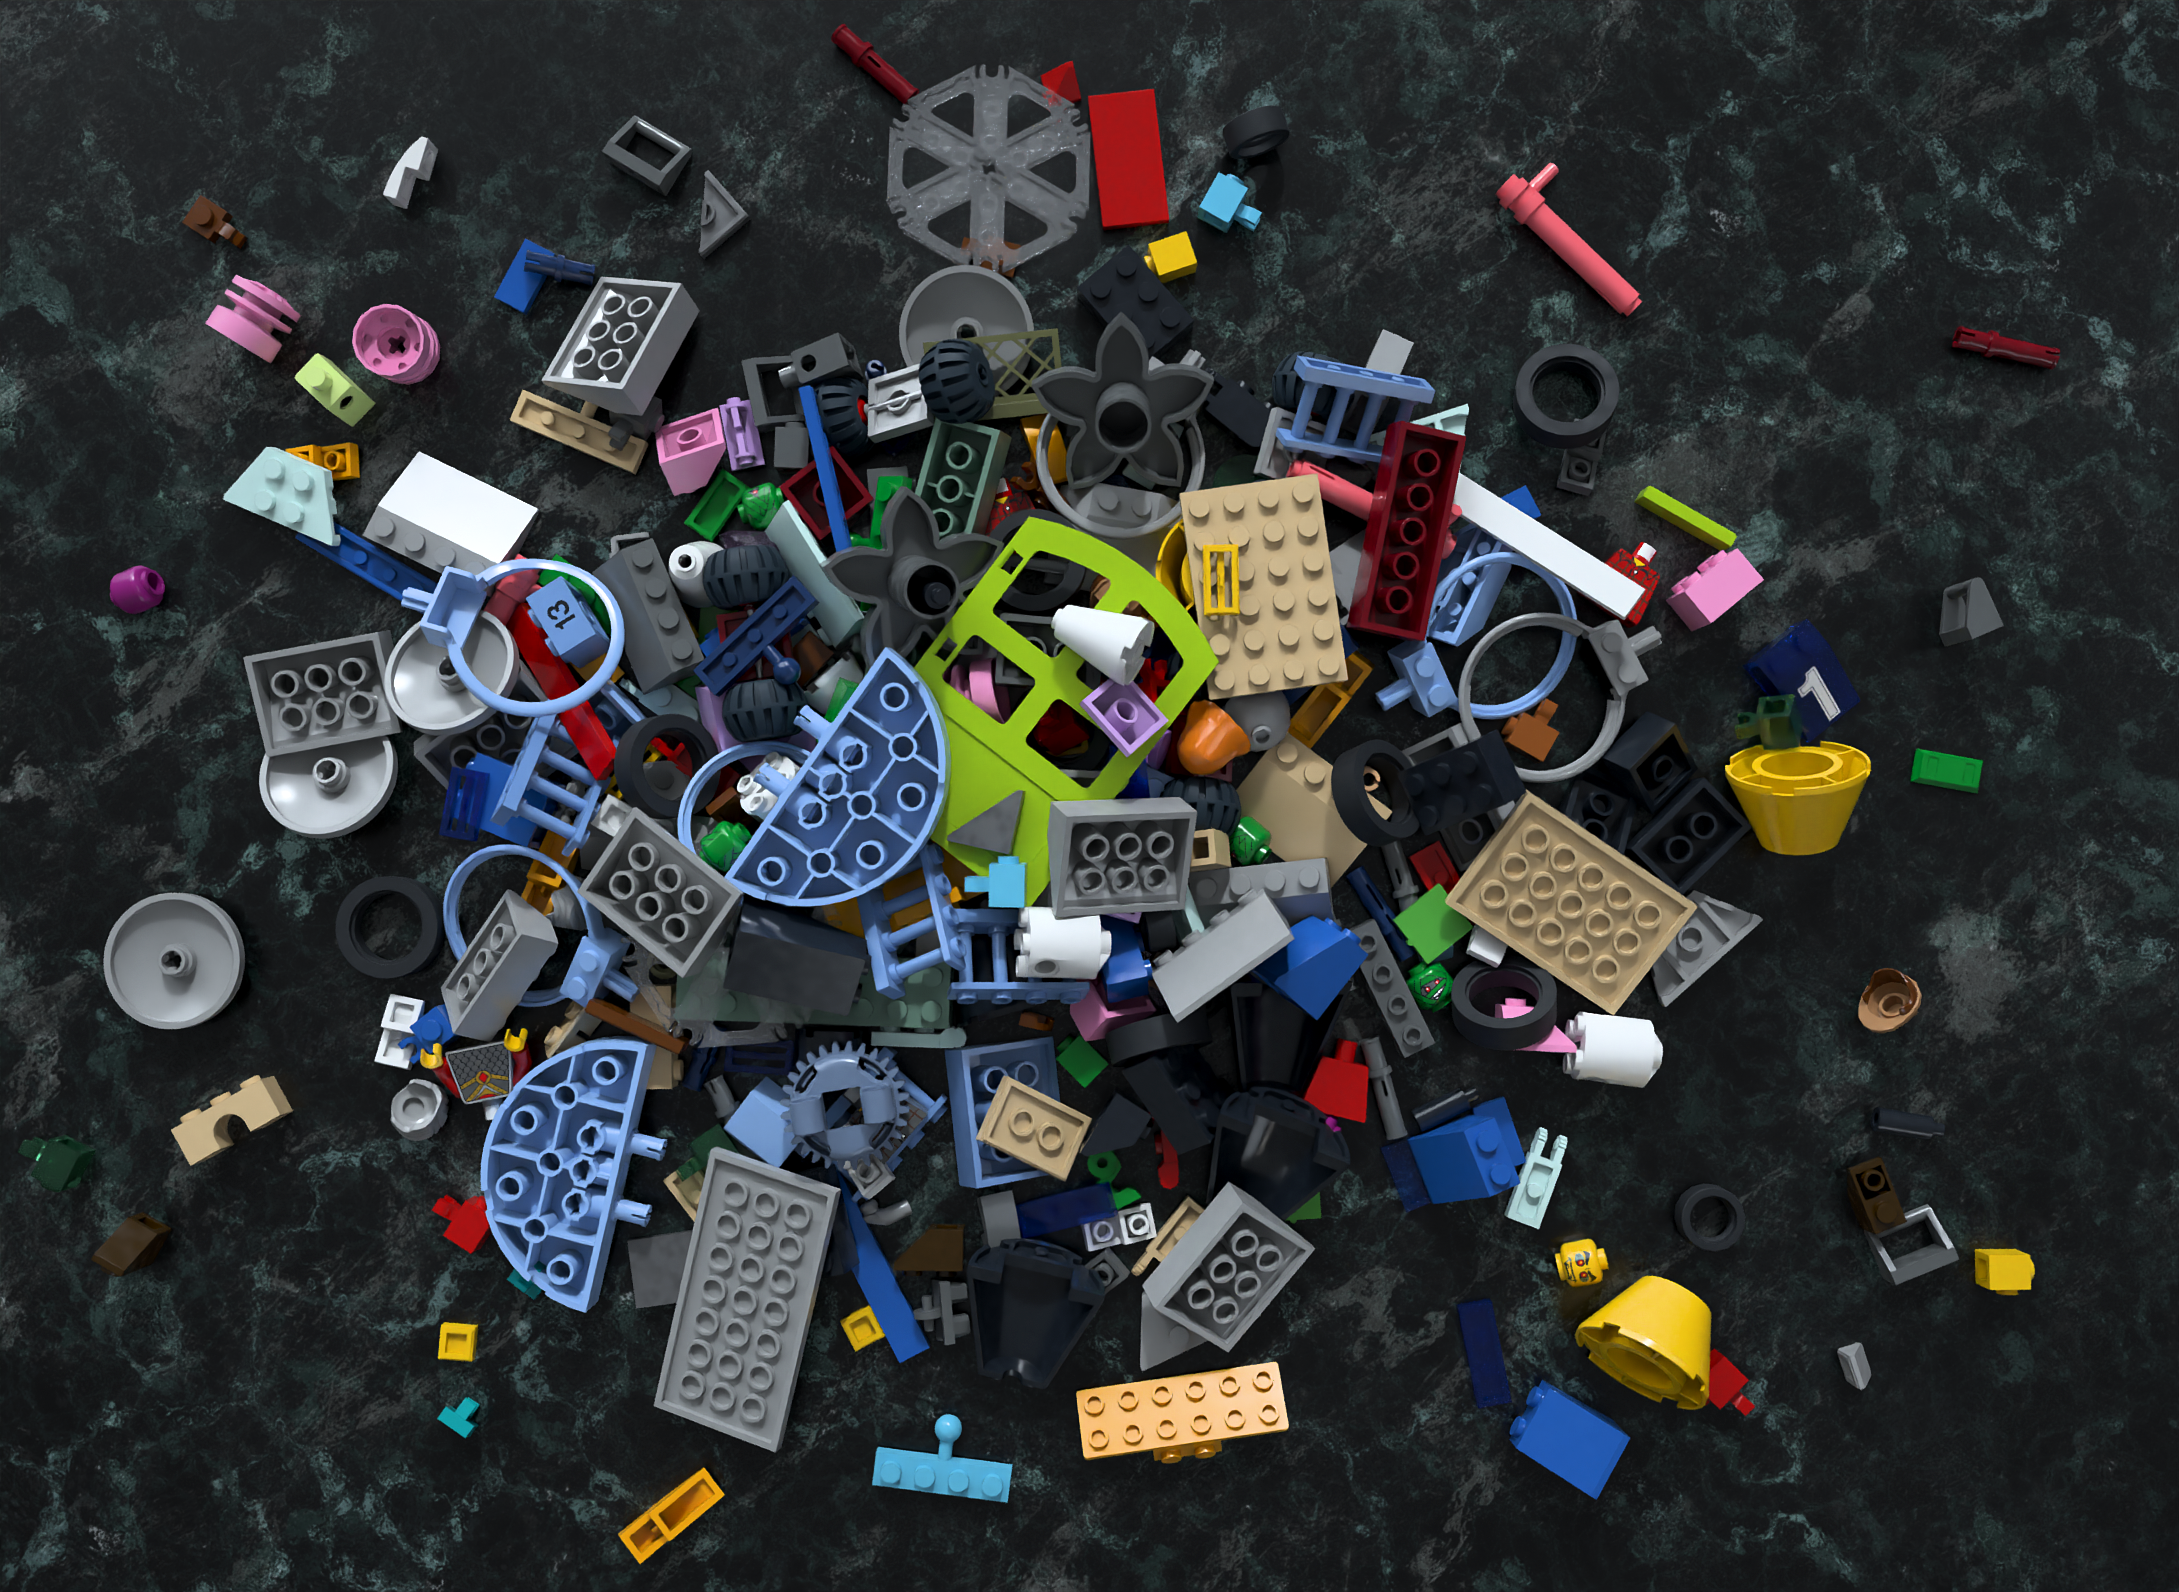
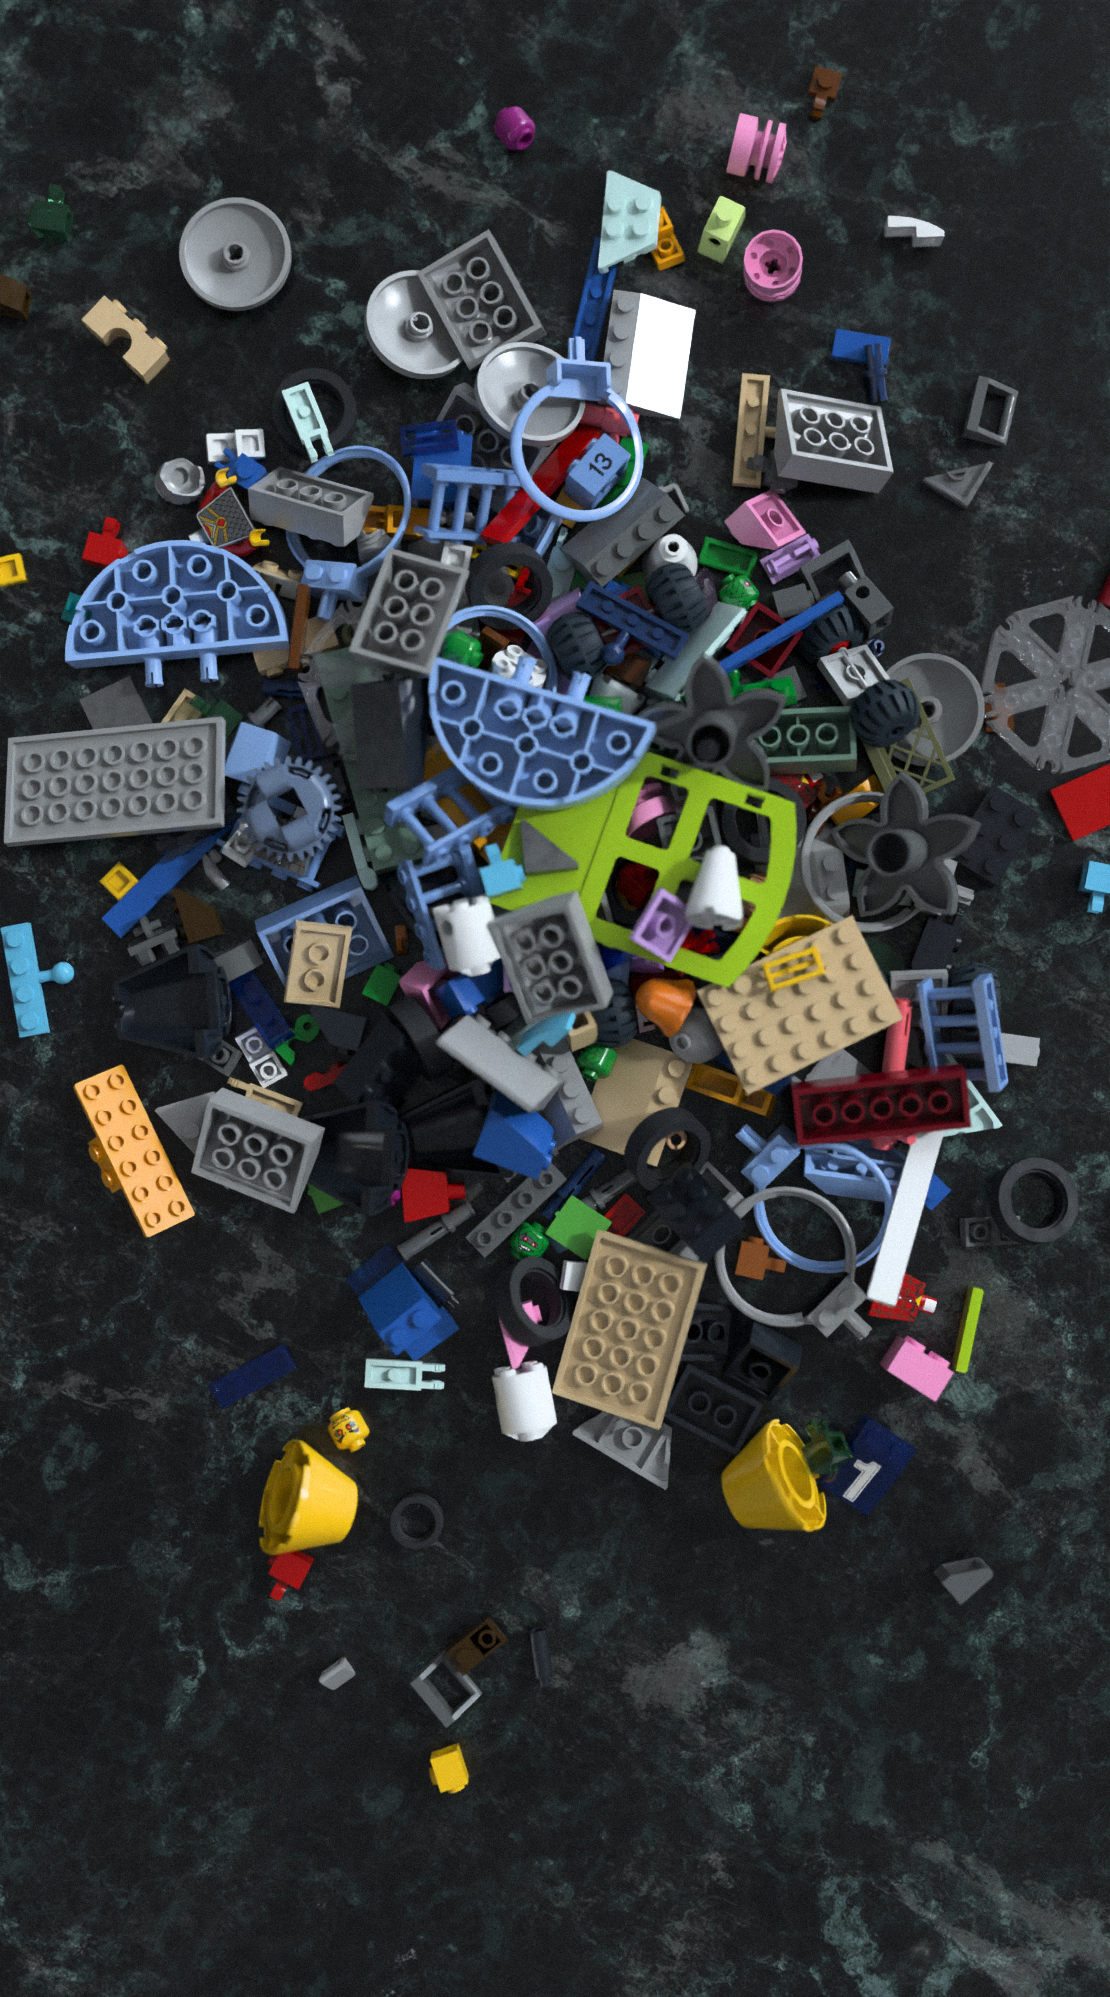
camera: 70 degrees right, 0 degrees up
(395, 938) = (307, 419): none -> light aqua hinge
(1171, 257) = (1042, 852): yellow brick -> none
(1201, 885) = (549, 1030): none -> medium azure slope
(1569, 1438) = (208, 1460): blue slope -> none
(1889, 1001) = (633, 1610): medium nougat piece -> none
(1946, 771) = (833, 1603): green tile -> none

